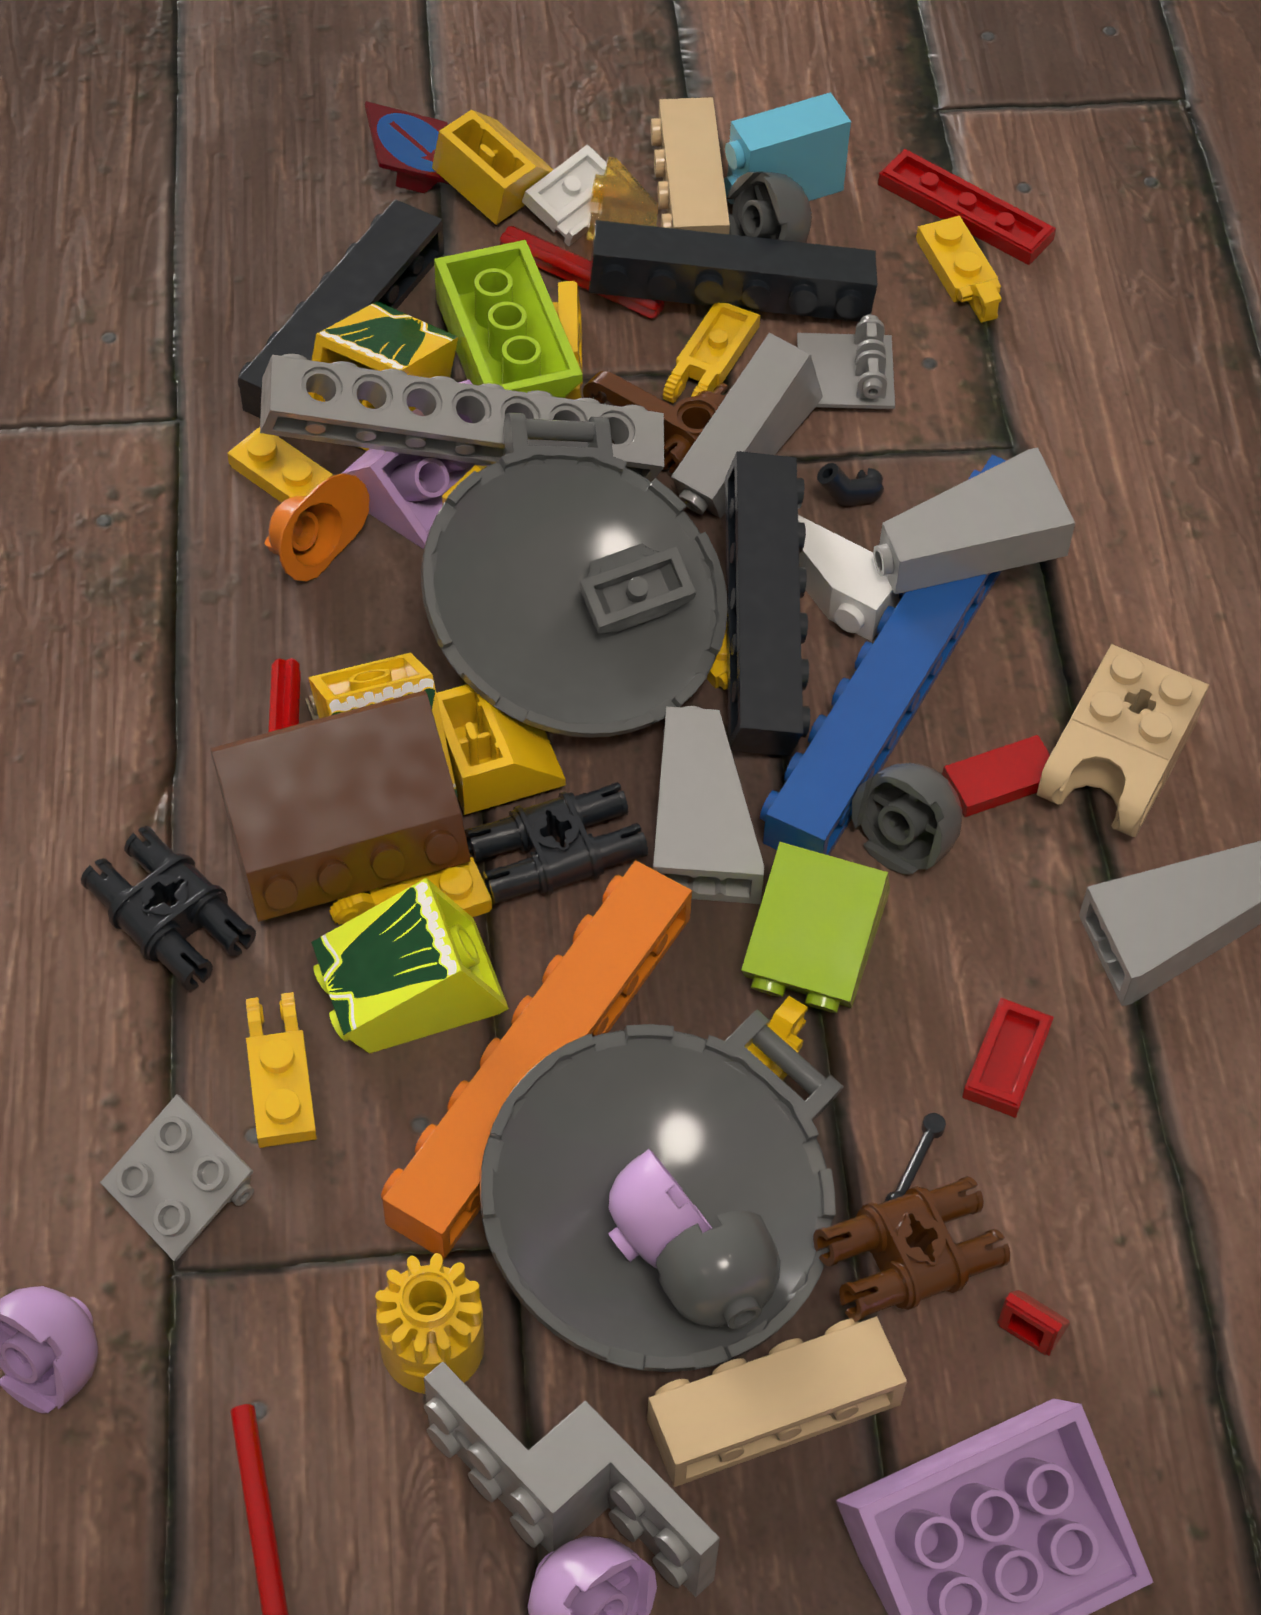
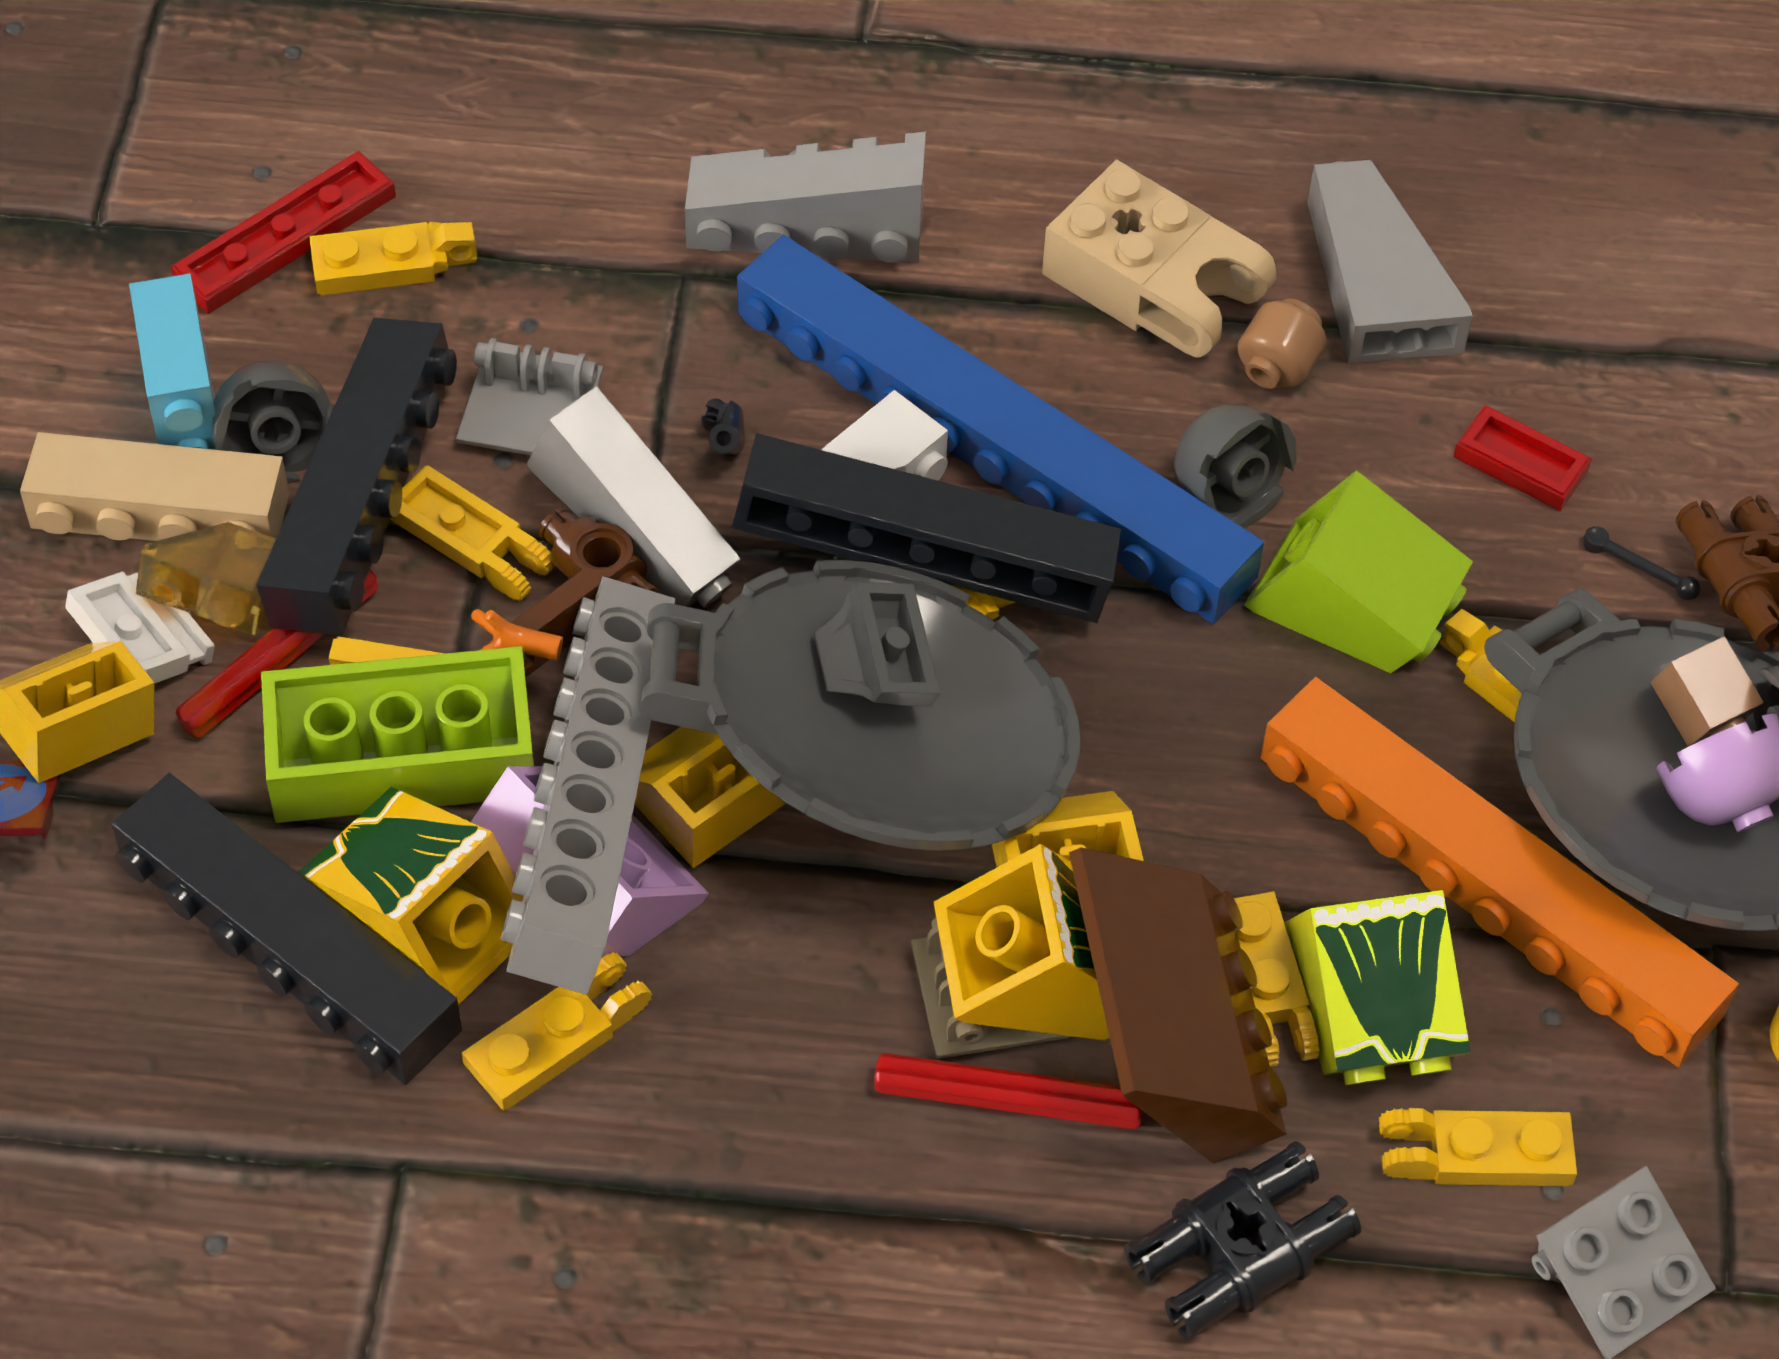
camera: 80 degrees left, 0 degrees up
(318, 526) = (668, 1015): orange piece -> none
(556, 843) = (1223, 791): black pin -> none
(596, 371) = (512, 635): none -> orange bar
(702, 813) = (1179, 662): light grey slope -> none
(746, 1184) = (1706, 691): none -> brick
(978, 527) = (867, 297): light grey slope -> none
(998, 775) = (1161, 384): red tile -> none
(1063, 846) = (1282, 342): none -> medium nougat head
(1110, 531) = (831, 202): none -> light grey wedge

